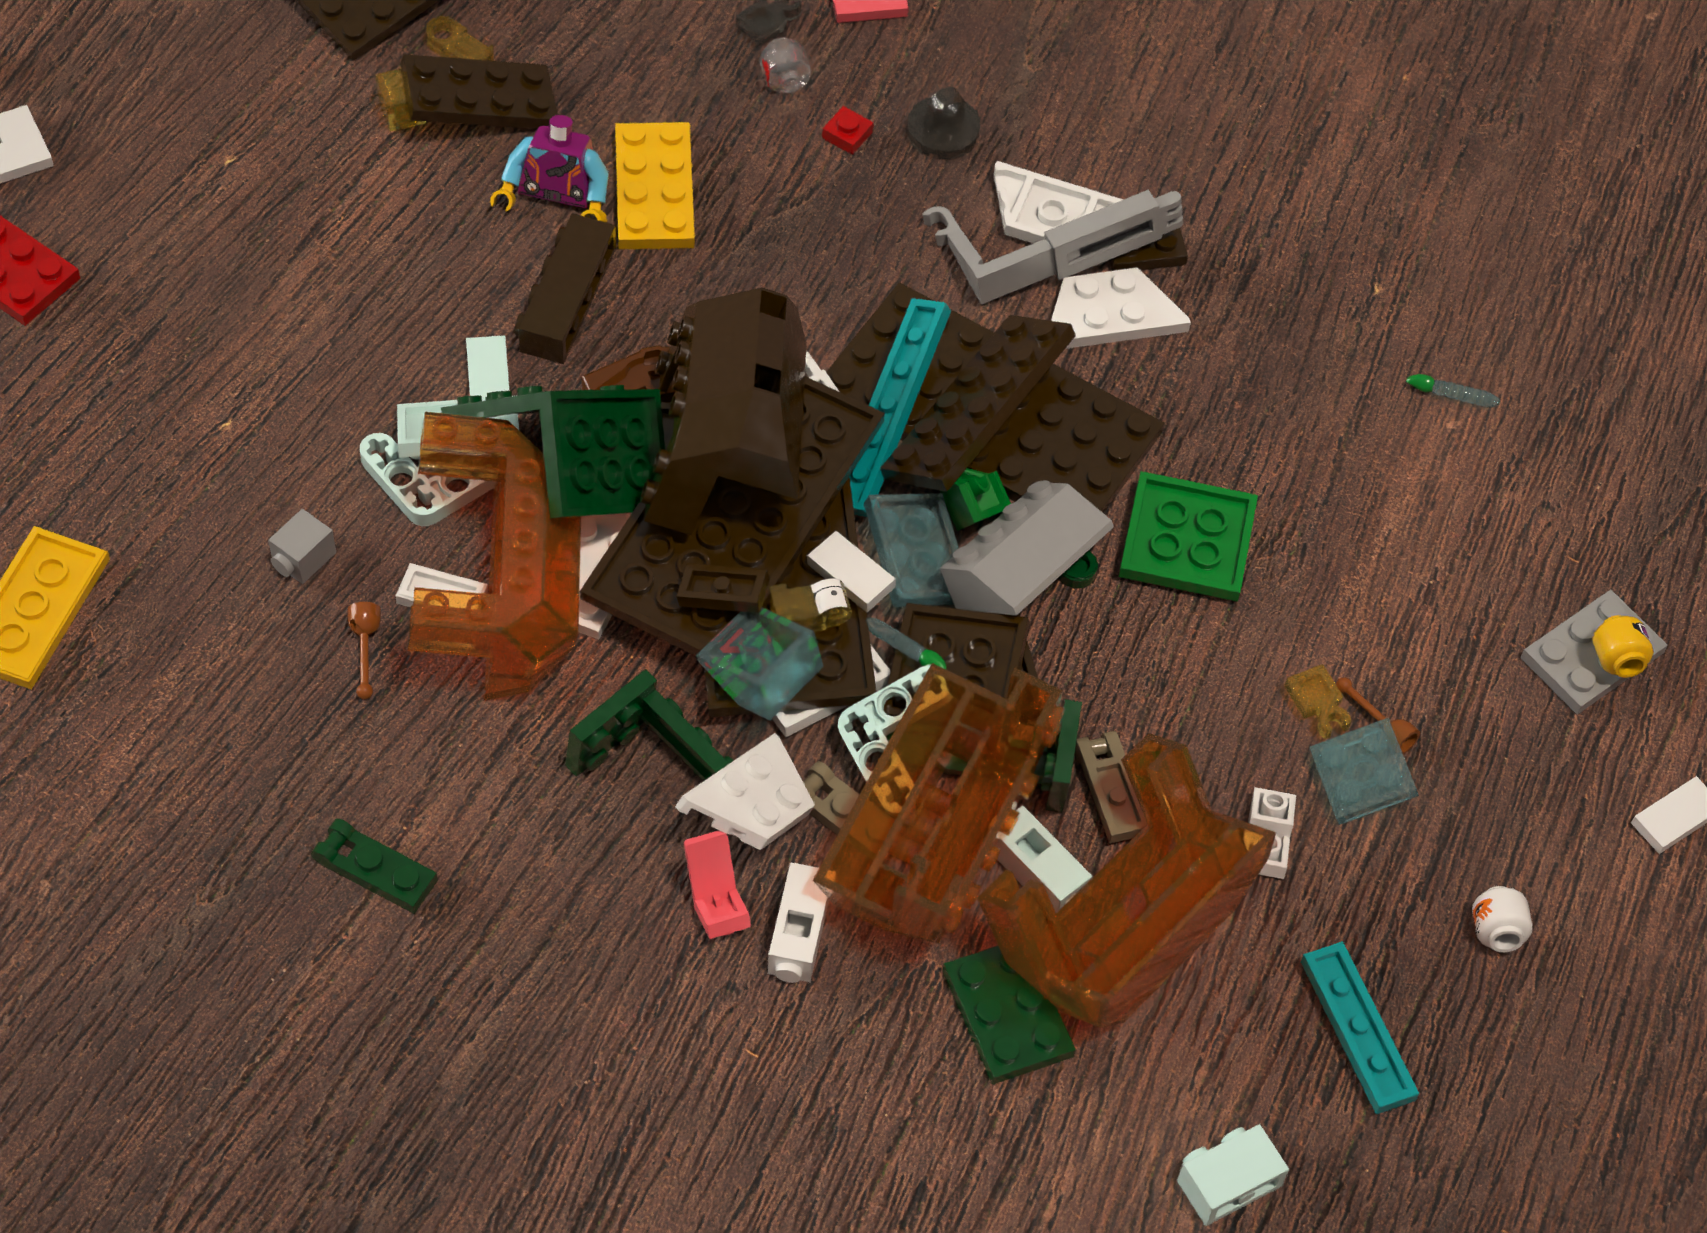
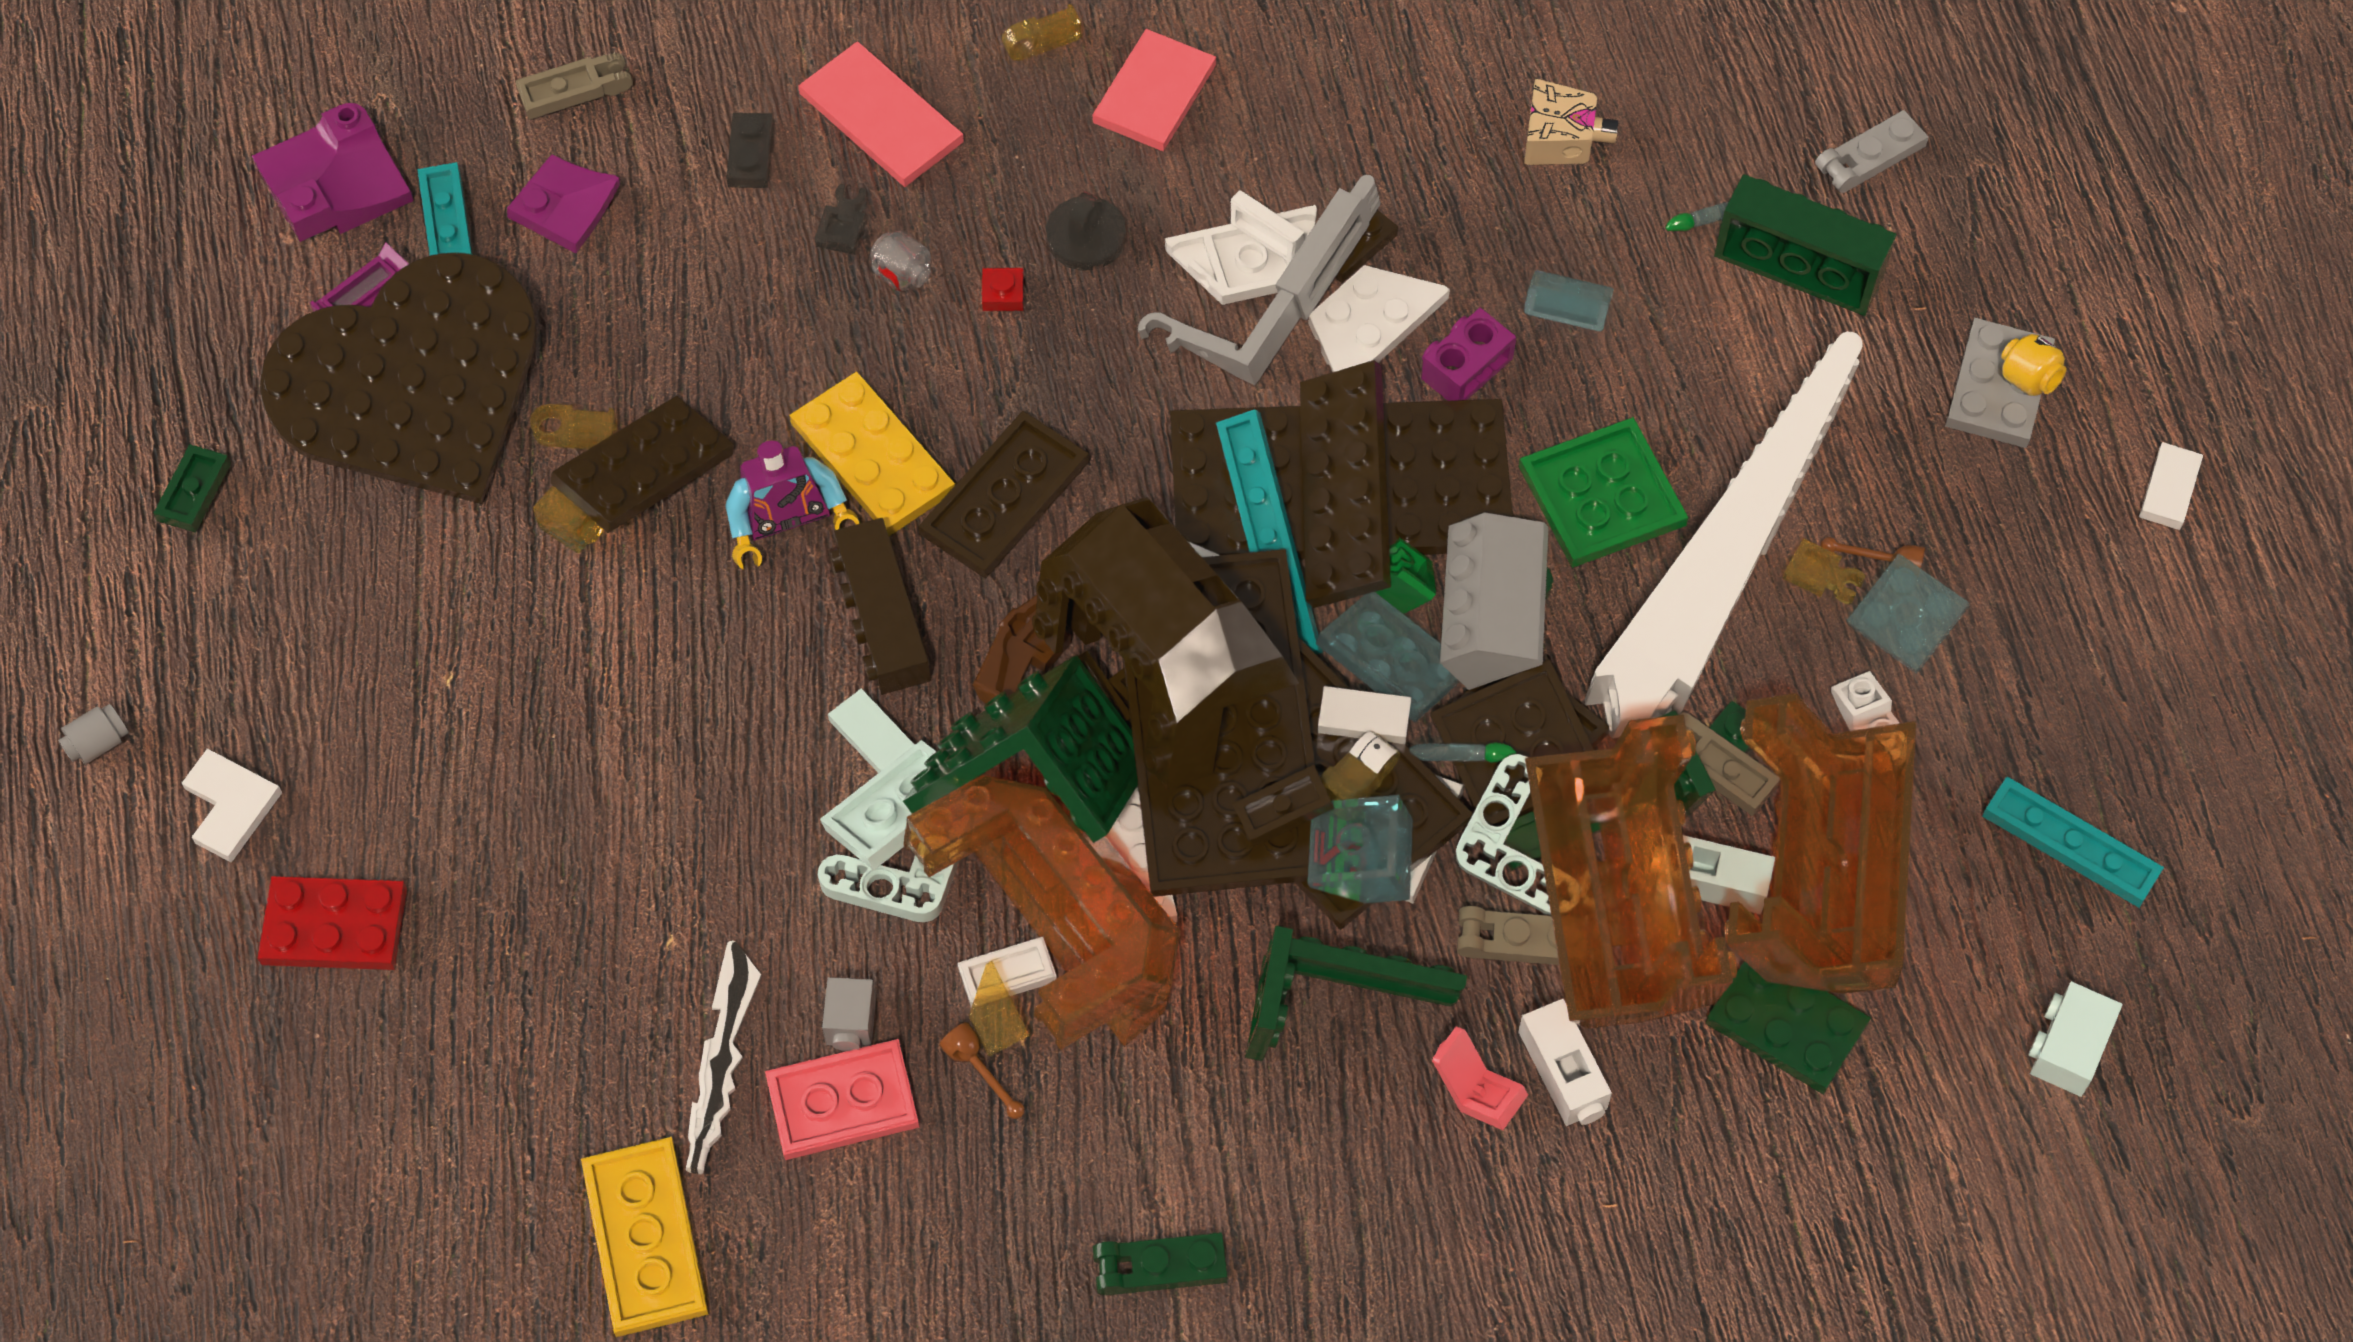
camera: 30 degrees left, 5 degrees up
(191, 521) = (720, 1057): none -> white sword
(249, 604) = (842, 1099): none -> coral tile
(396, 613) = (995, 1014): none -> clear yellow tile
(724, 264) = (1003, 494): none -> dark brown plate
(753, 795) = (1450, 976): white wing -> none
(1074, 186) = (1265, 226): none -> white tile
(1081, 59) = (1154, 90): none -> coral tile
(1163, 377) = (1474, 361): none -> magenta brick
(1248, 623) = (1681, 621): none -> white brick
(1281, 386) = (1568, 300): none -> clear light blue slope
(1382, 258) = (1564, 125): none -> tan torso
(1502, 919) = (2111, 670): white head -> none
(1504, 449) = (1804, 244): none -> dark green brick
(1628, 421) = (1872, 151): none -> light grey plate

